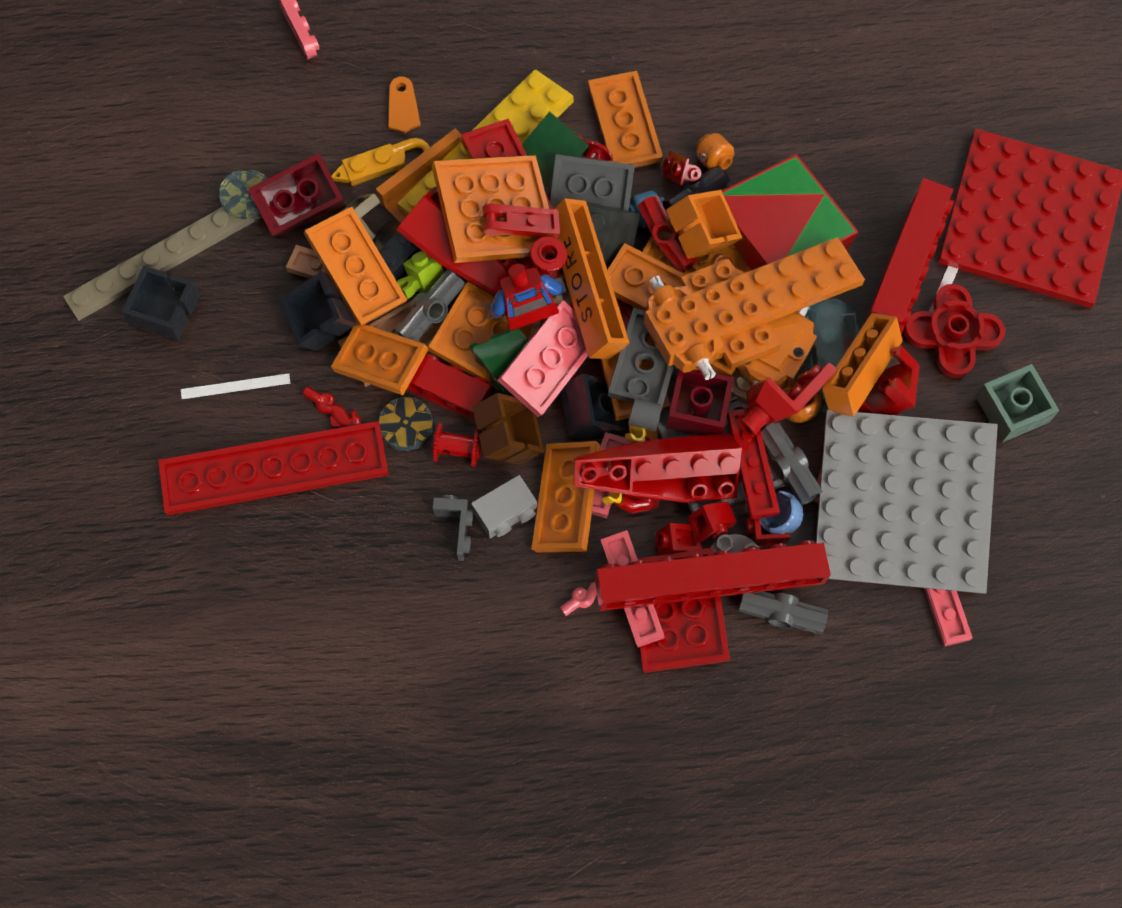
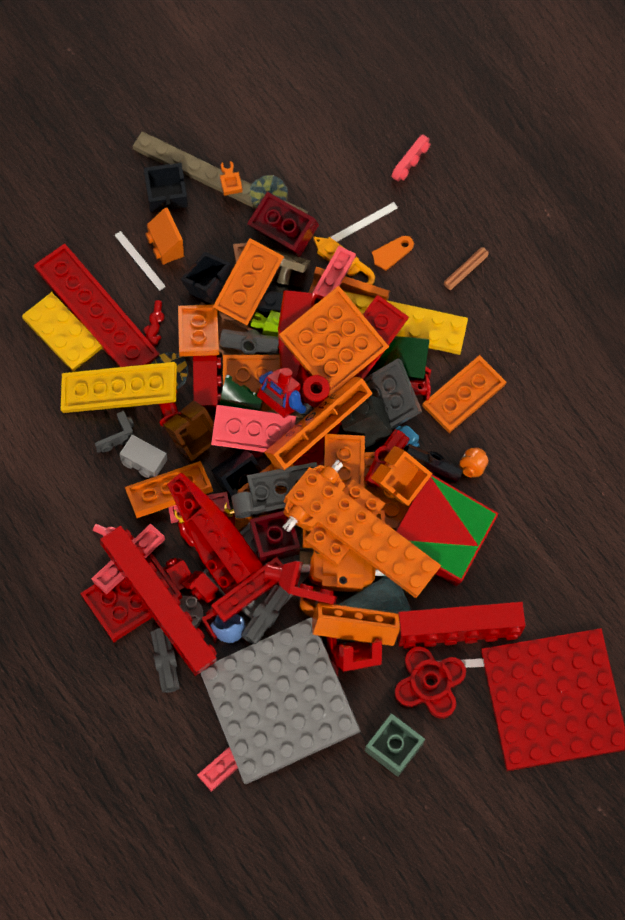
camera: 60 degrees right, 0 degrees up
(203, 226) = (230, 181): none -> orange plate
(228, 335) = (165, 237): none -> orange slope
(275, 524) = (62, 331): none -> yellow plate
(344, 110) = (364, 222): none -> white sticker
(400, 170) = (335, 271): none -> coral plate
(400, 488) = (119, 387): none -> yellow plate
(470, 42) = (466, 268): none -> nougat axle
(521, 221) = (330, 360): red plate -> none
(677, 168) = (444, 445): red hinge -> none

